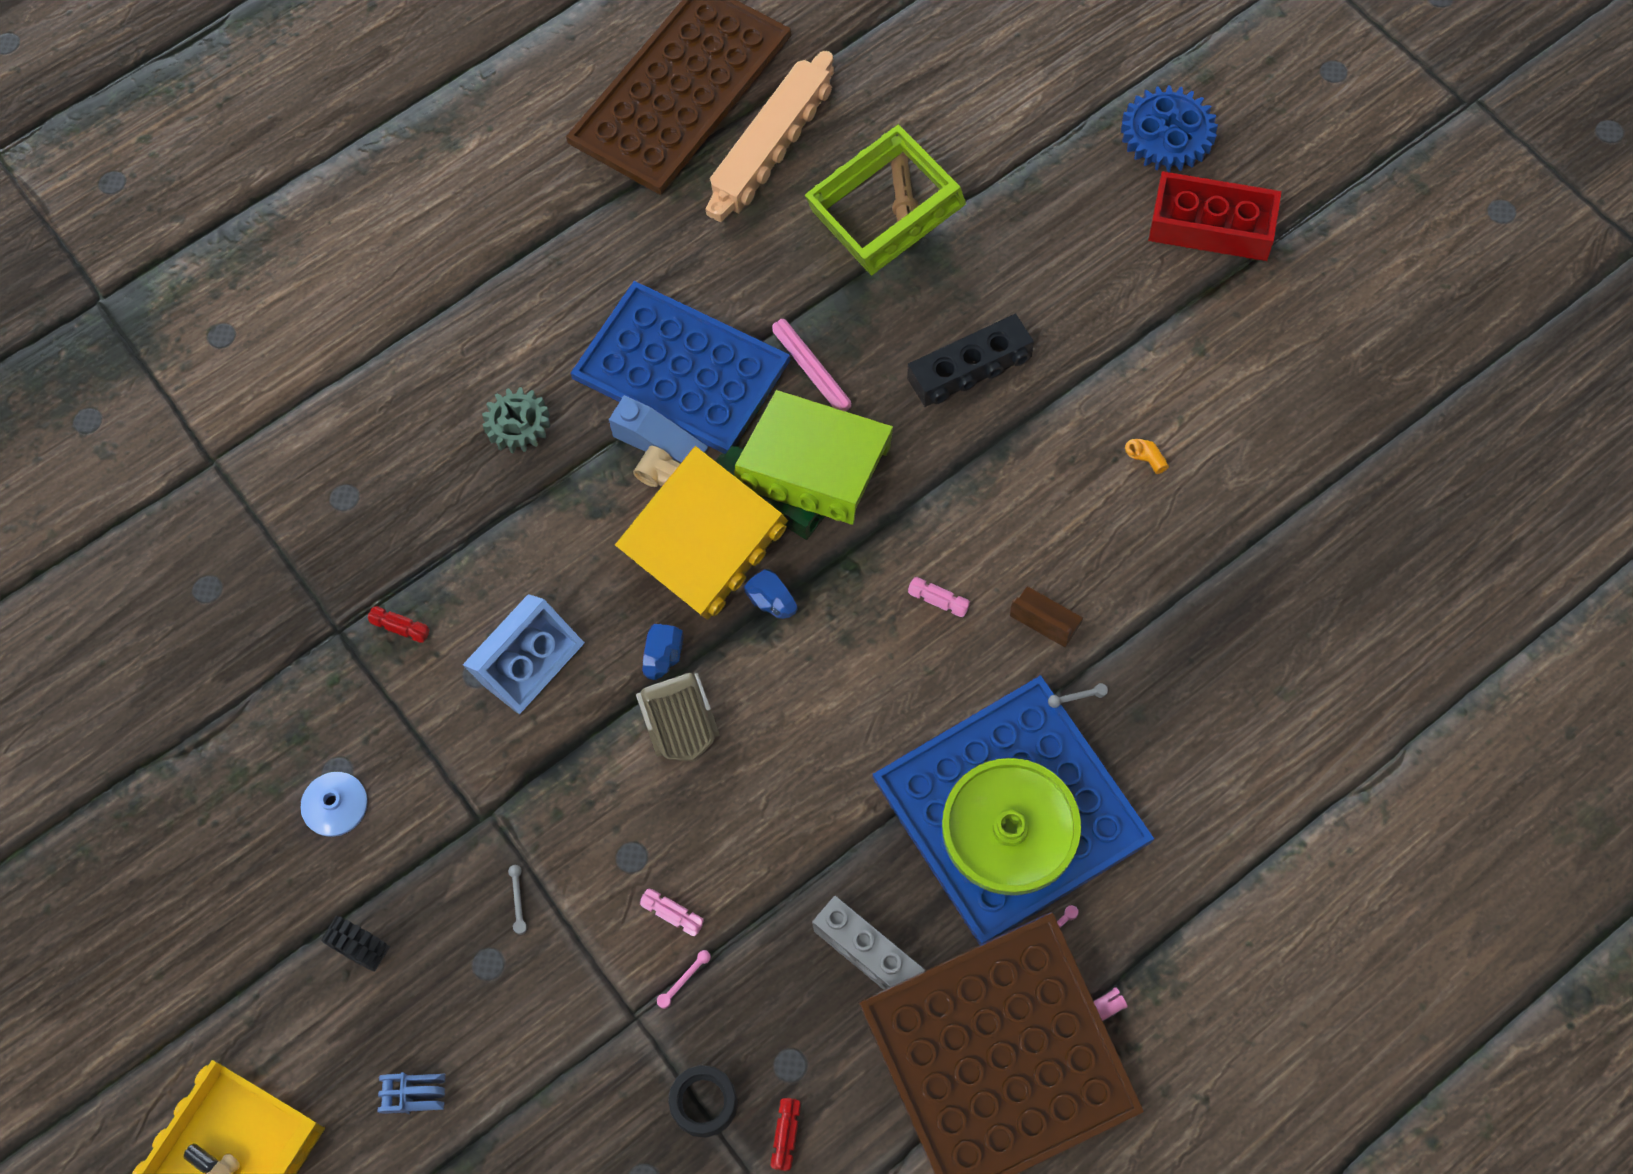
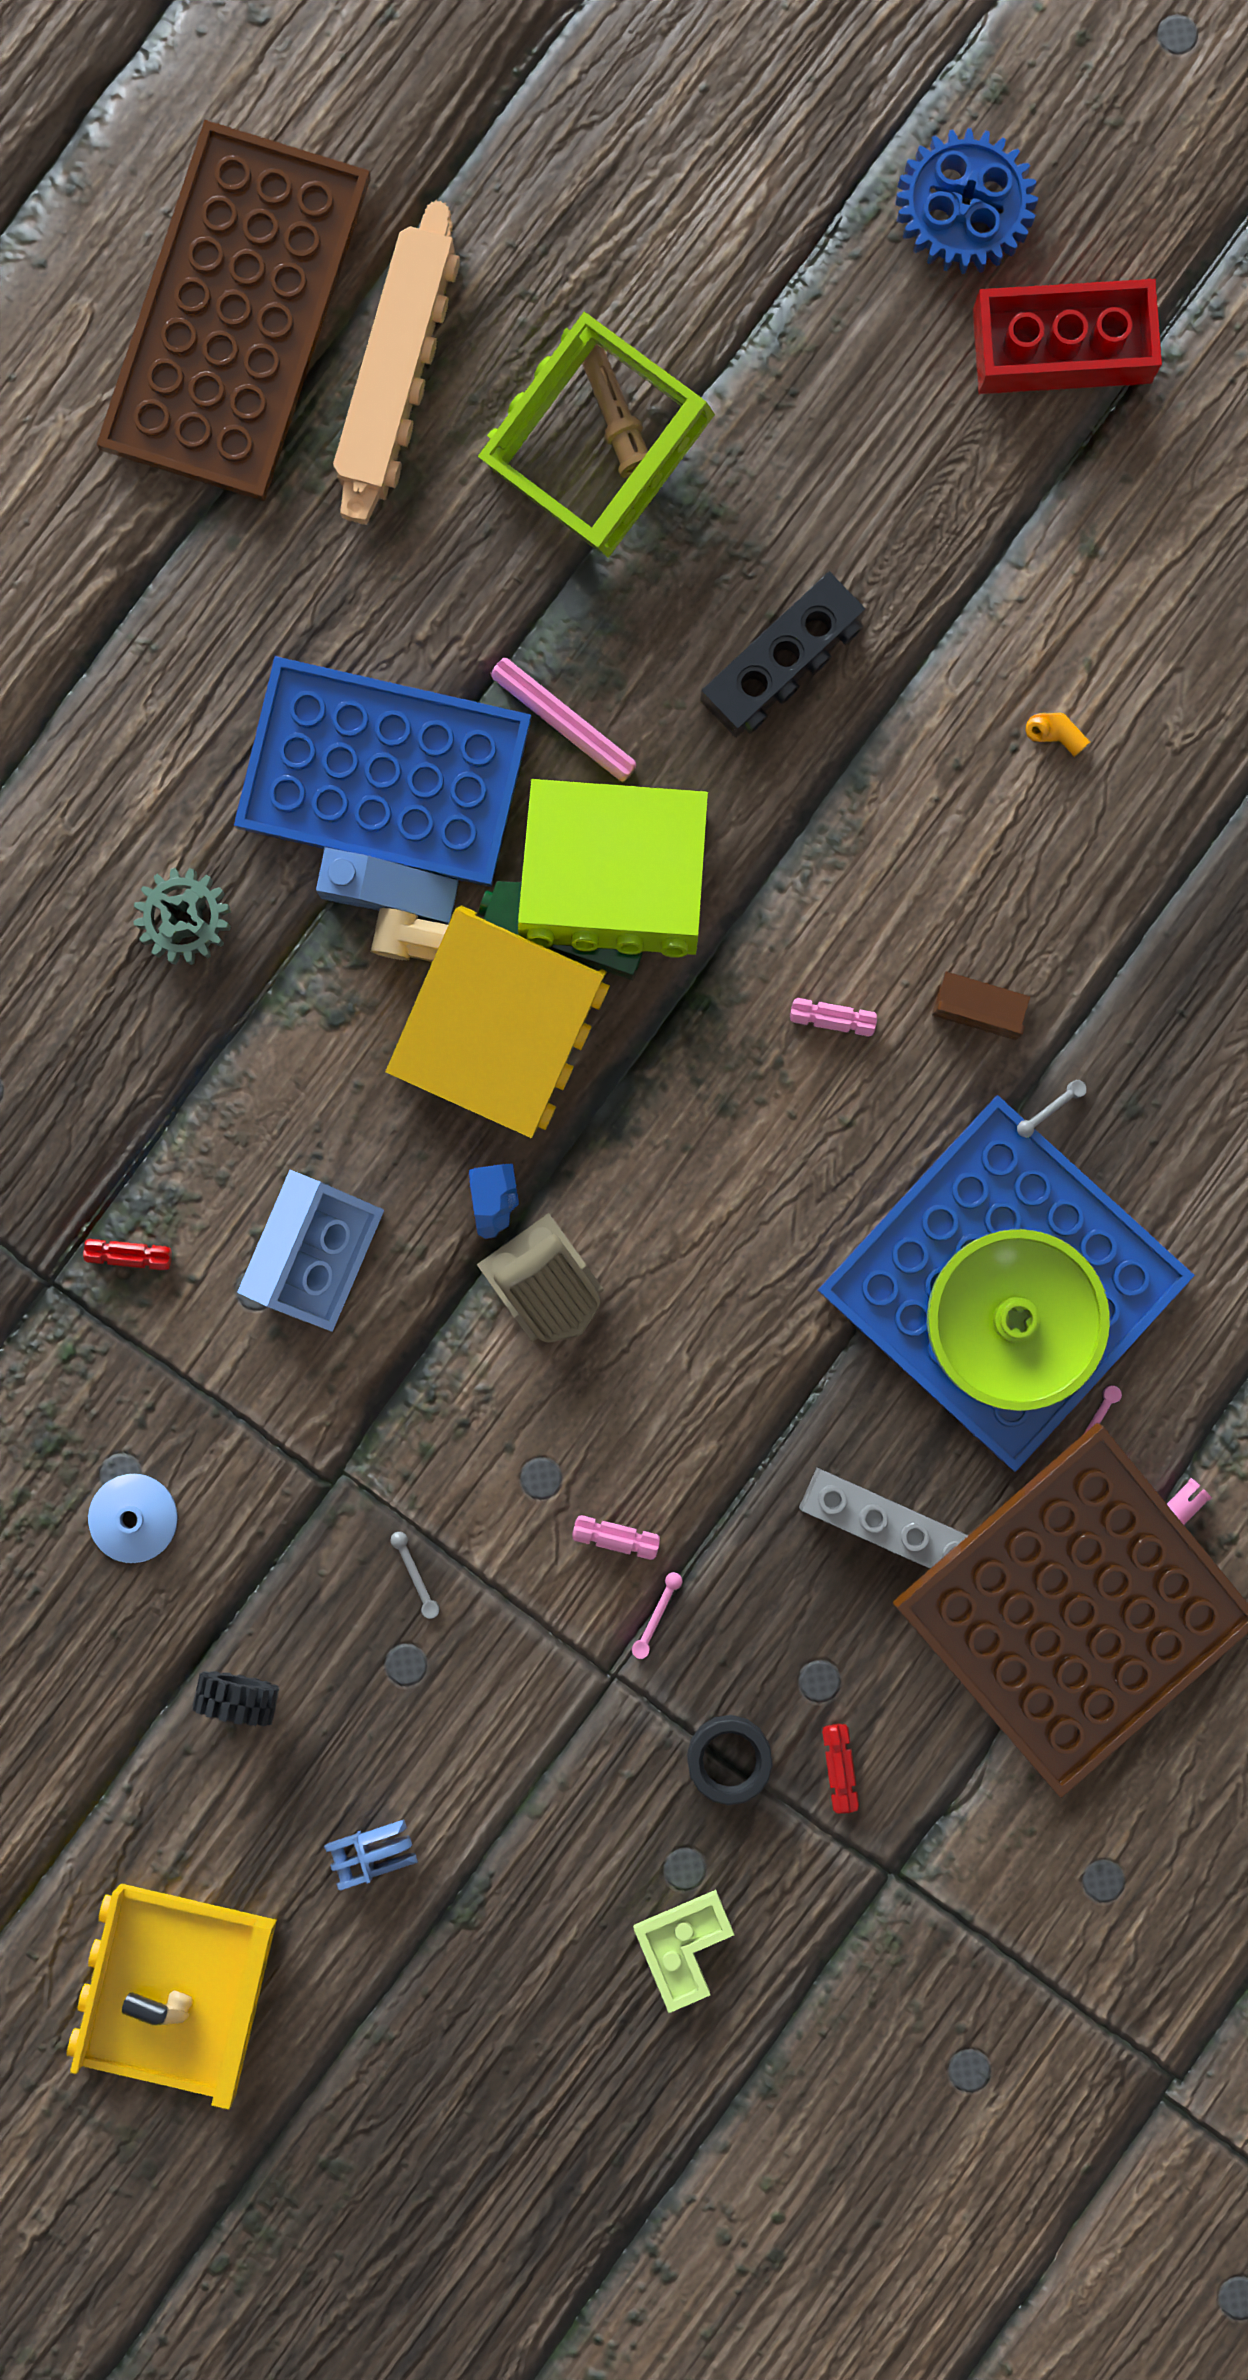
camera: 20 degrees left, 20 degrees up
(770, 594) = (613, 1080): blue rock -> none

